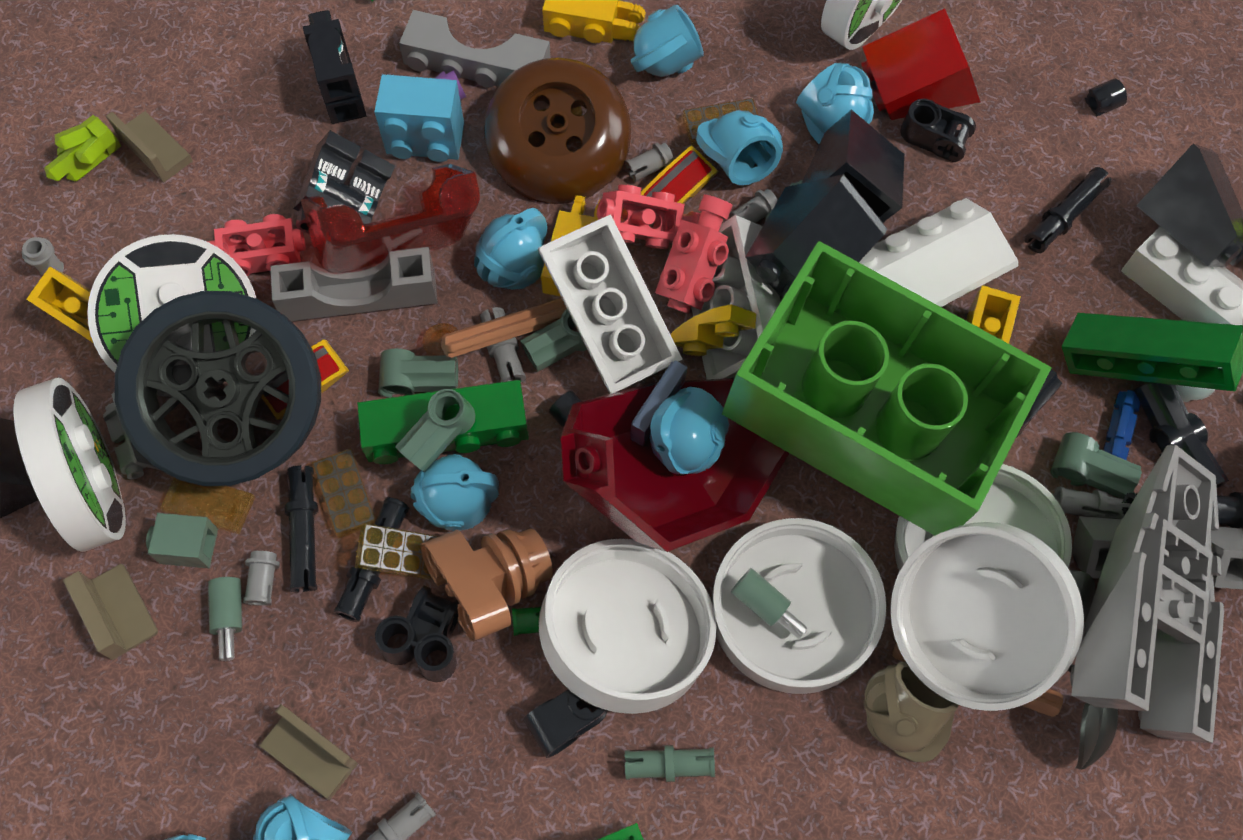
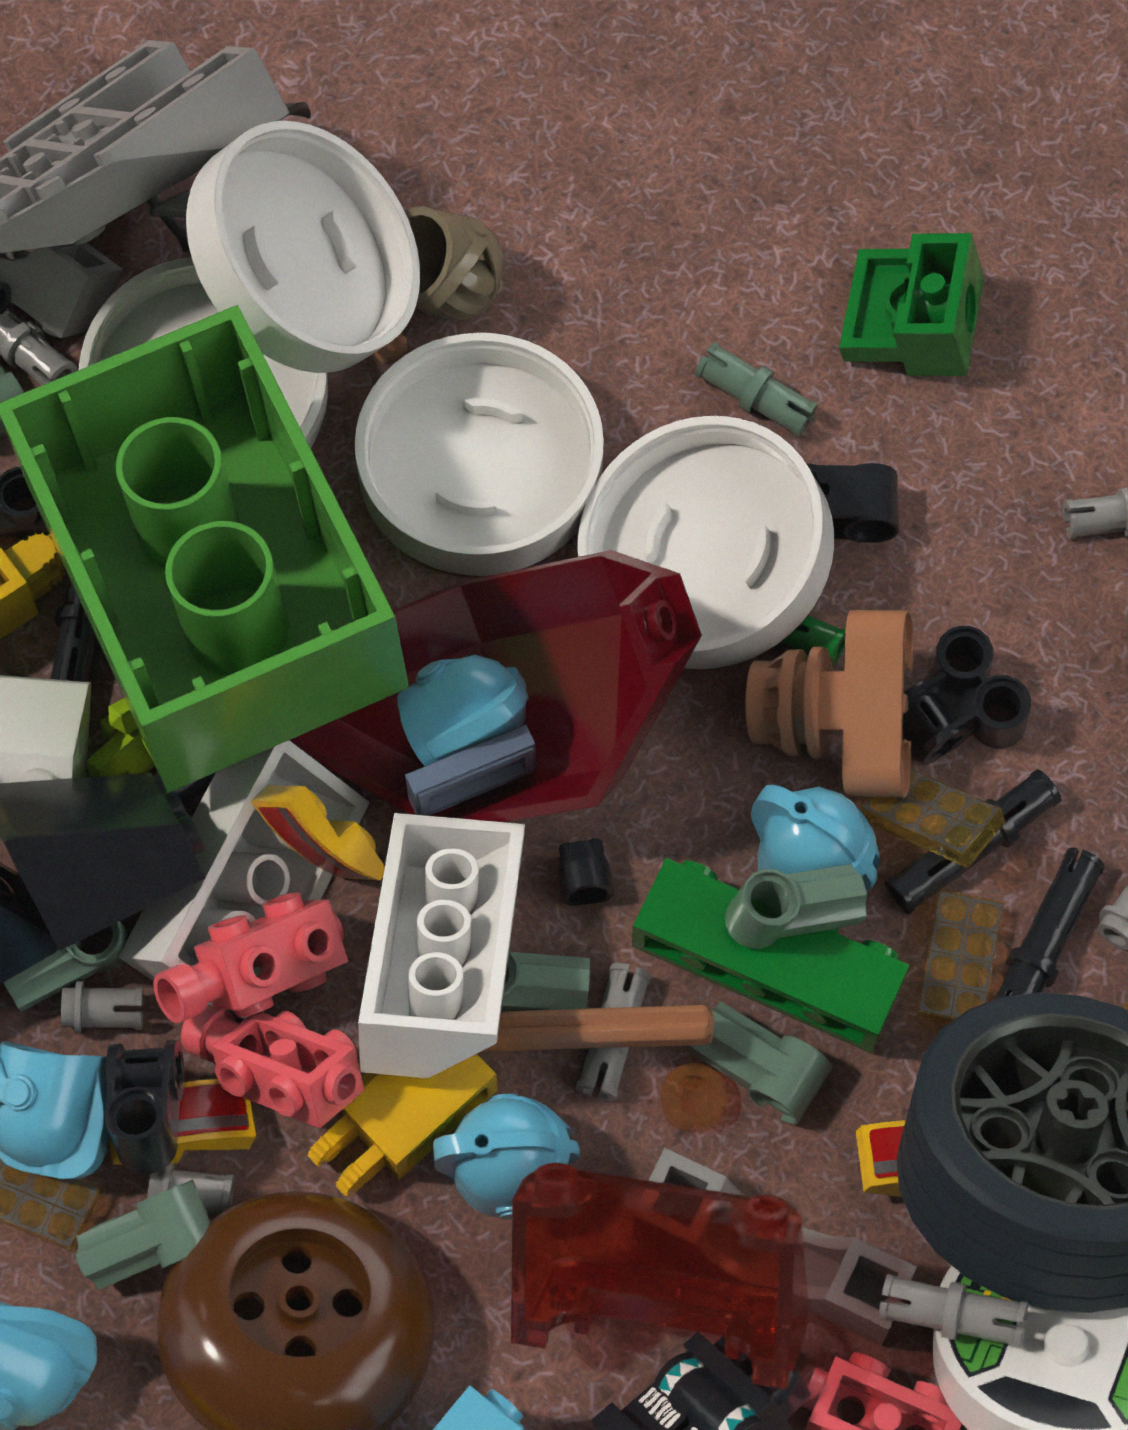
camera: 145 degrees left, 0 degrees up
(239, 277) = (953, 1310): none -> light grey pin
(647, 125) = (153, 1234): none -> sand green piece
(696, 168) = (143, 1093): none -> black piece
(767, 602) = (520, 467): sand green piece -> none

